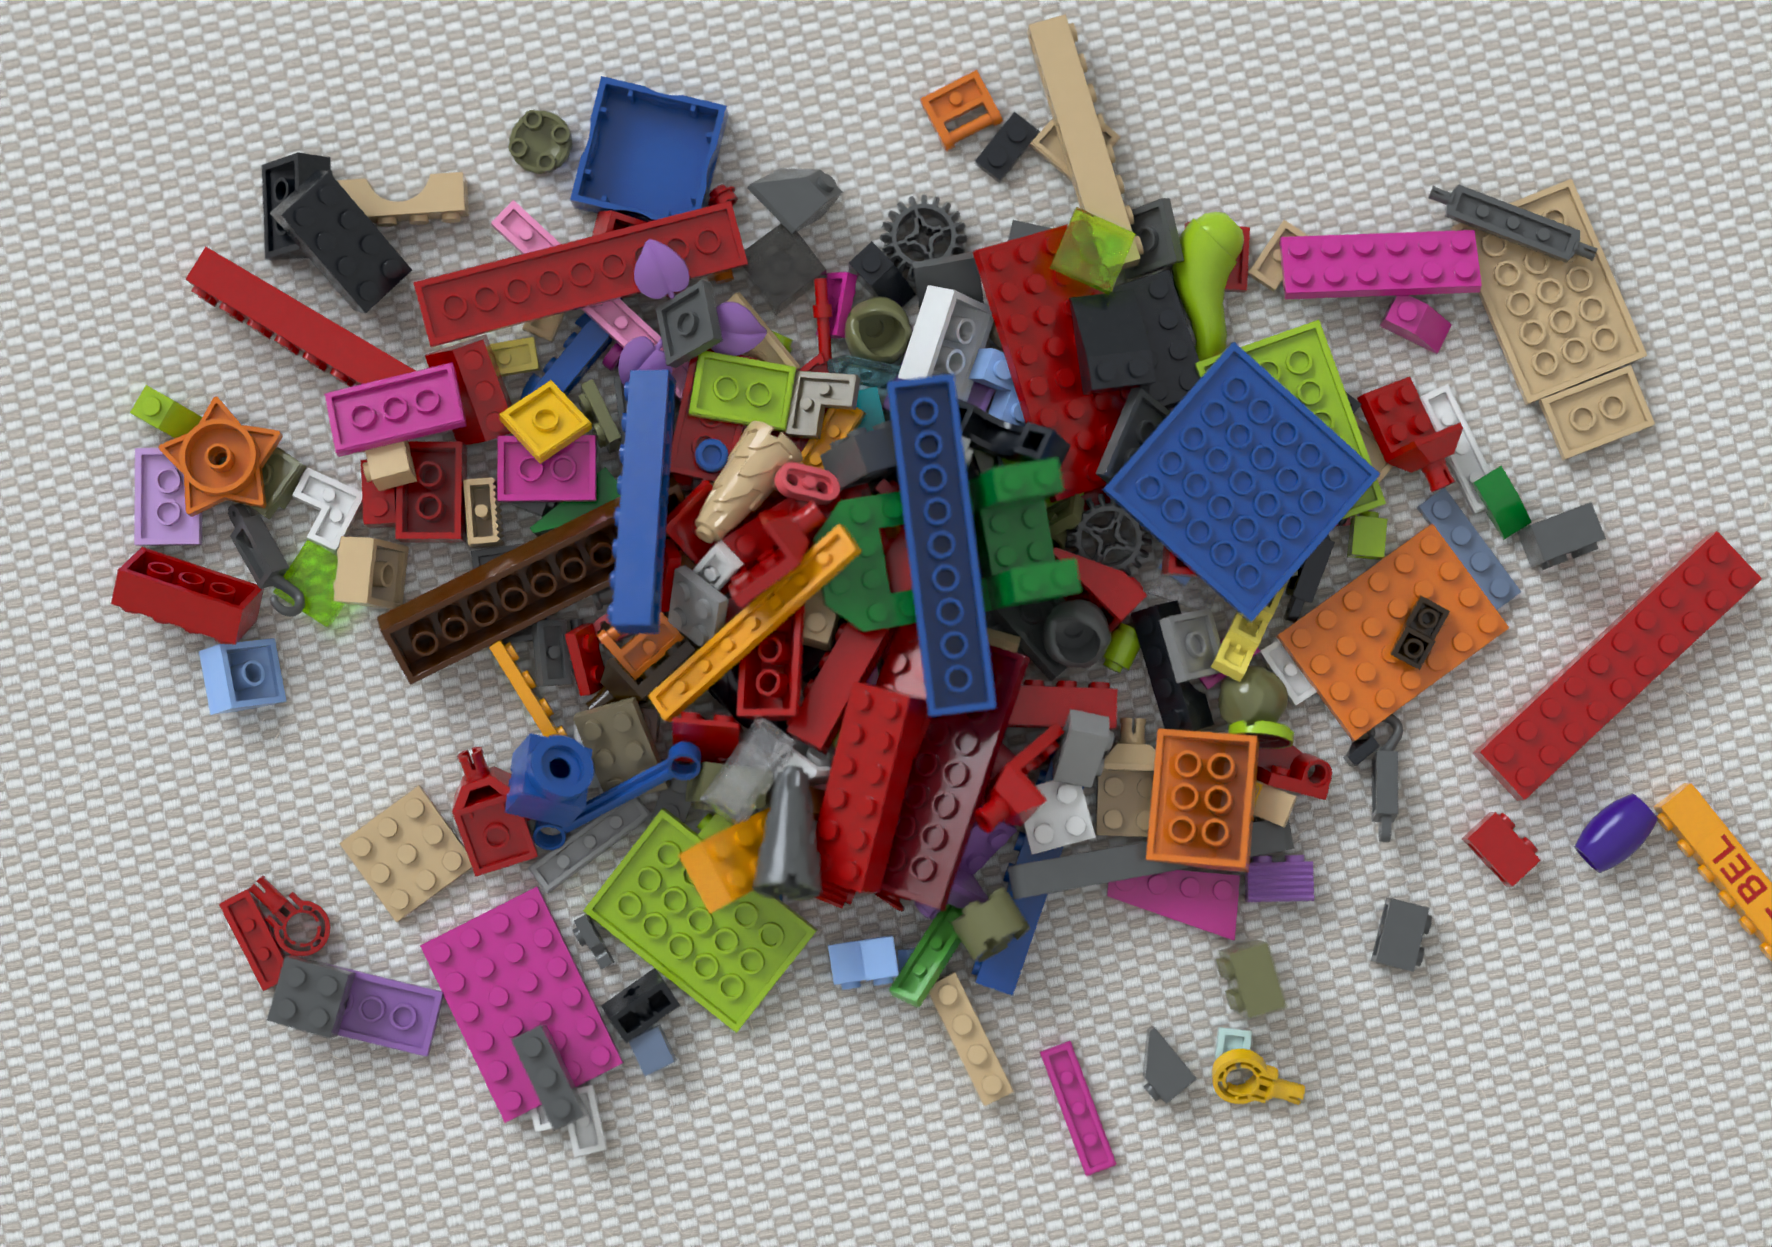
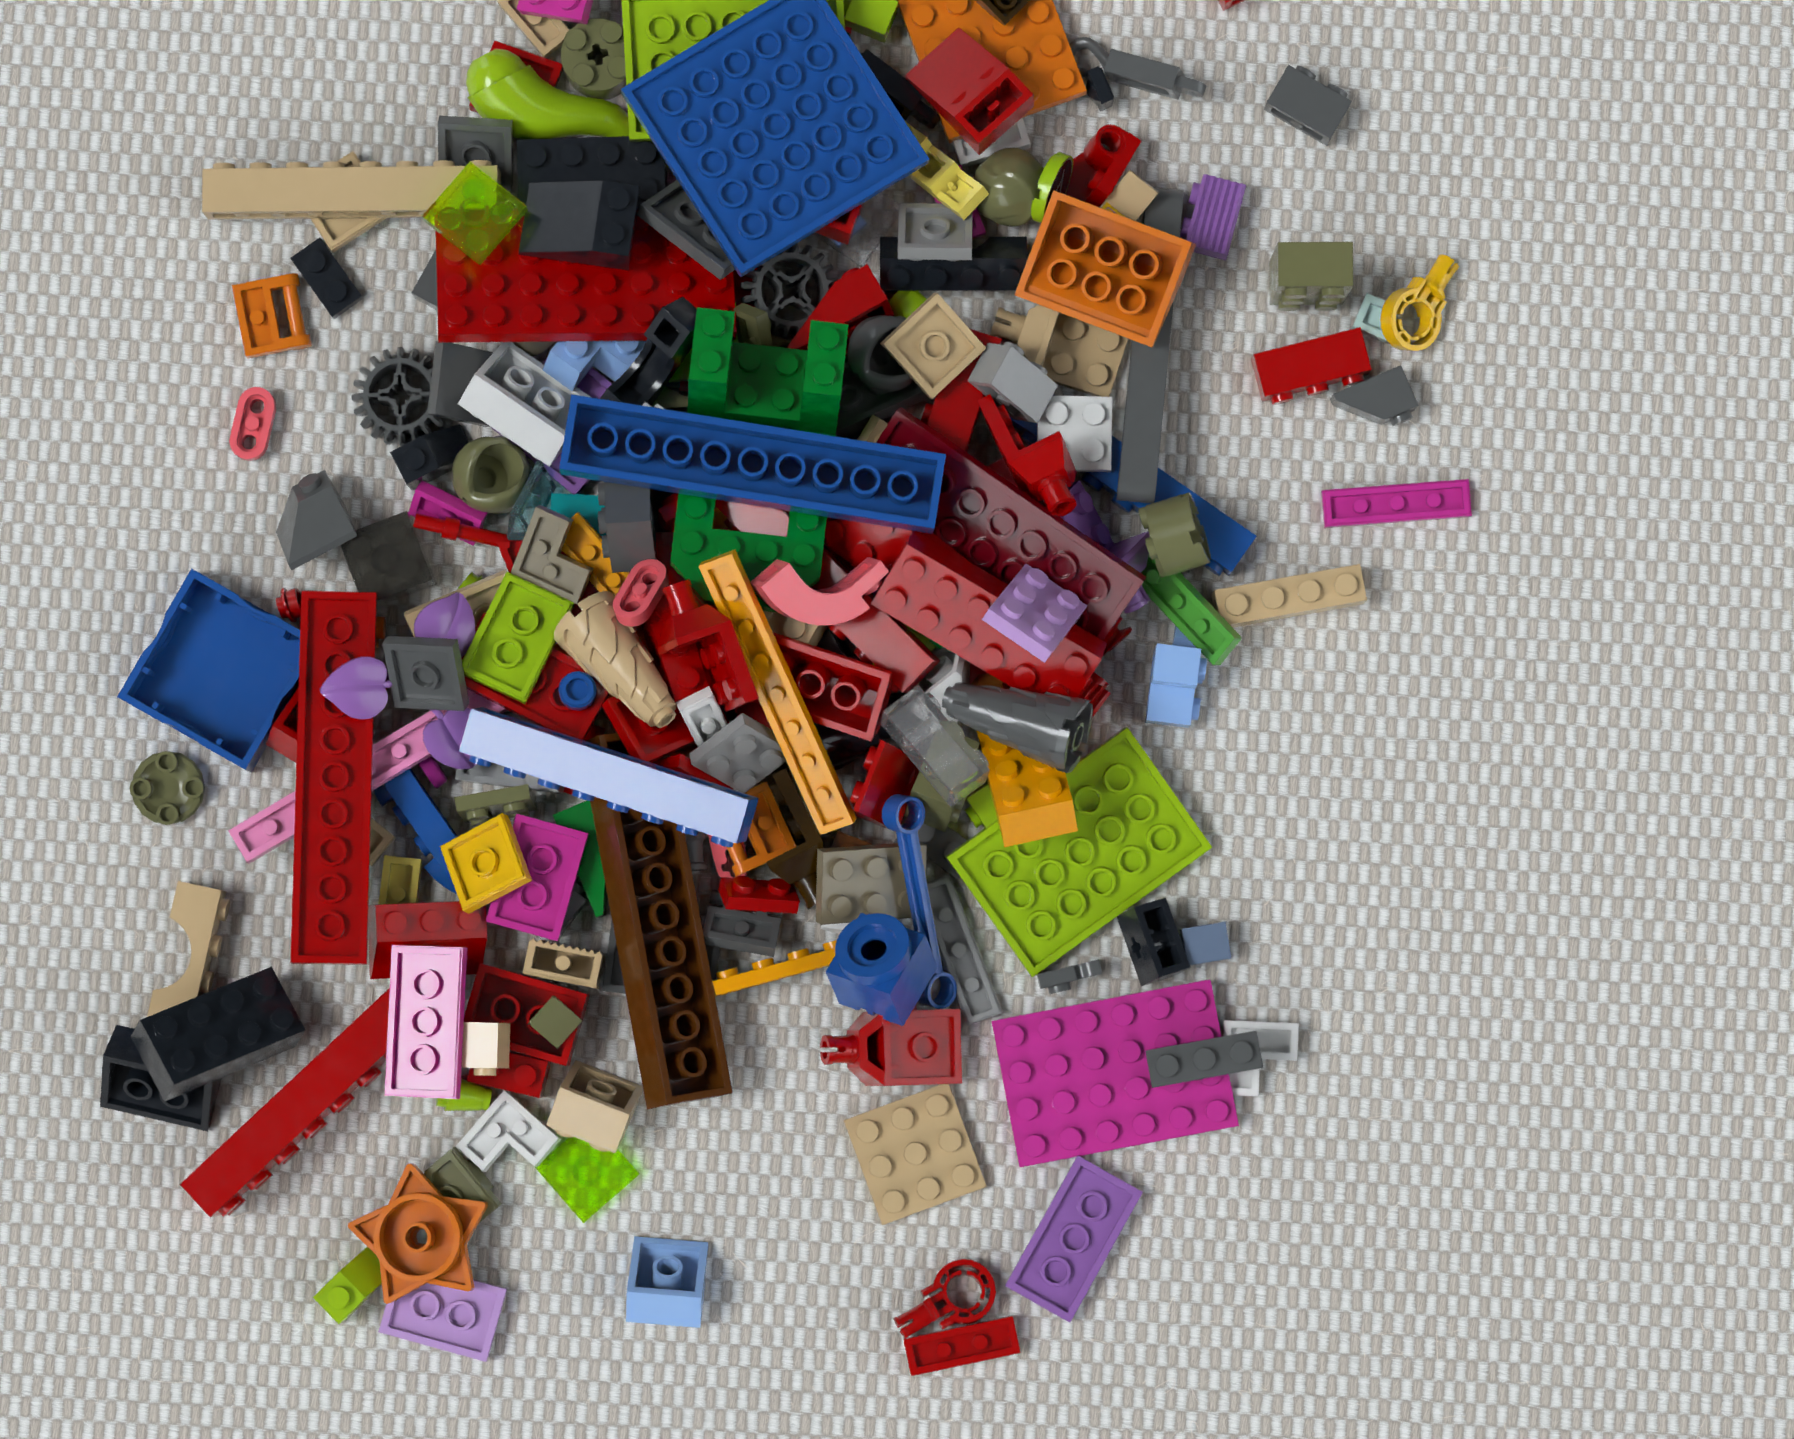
camera: 75 degrees left, 0 degrees up
(187, 596) = (562, 1315): red brick -> none
(263, 557) = (542, 1221): dark grey piece -> none
(311, 996) = (1042, 1298): dark grey brick -> none
(351, 467) = (472, 1098): none -> lime cone
(428, 518) = (555, 1021): none -> olive slope
(837, 638) = (789, 595): none -> coral arch
(865, 119) = (252, 424): none -> coral plate
(882, 823) = (1035, 612): none -> lavender plate
(1091, 671) = (933, 345): none -> tan plate
(1174, 1001) = (1311, 366): none -> red brick
(1189, 897) = (1202, 321): dark pink wing -> none
(1263, 300) = (578, 57): none -> olive brick
(1325, 641) = (971, 90): none -> red slope

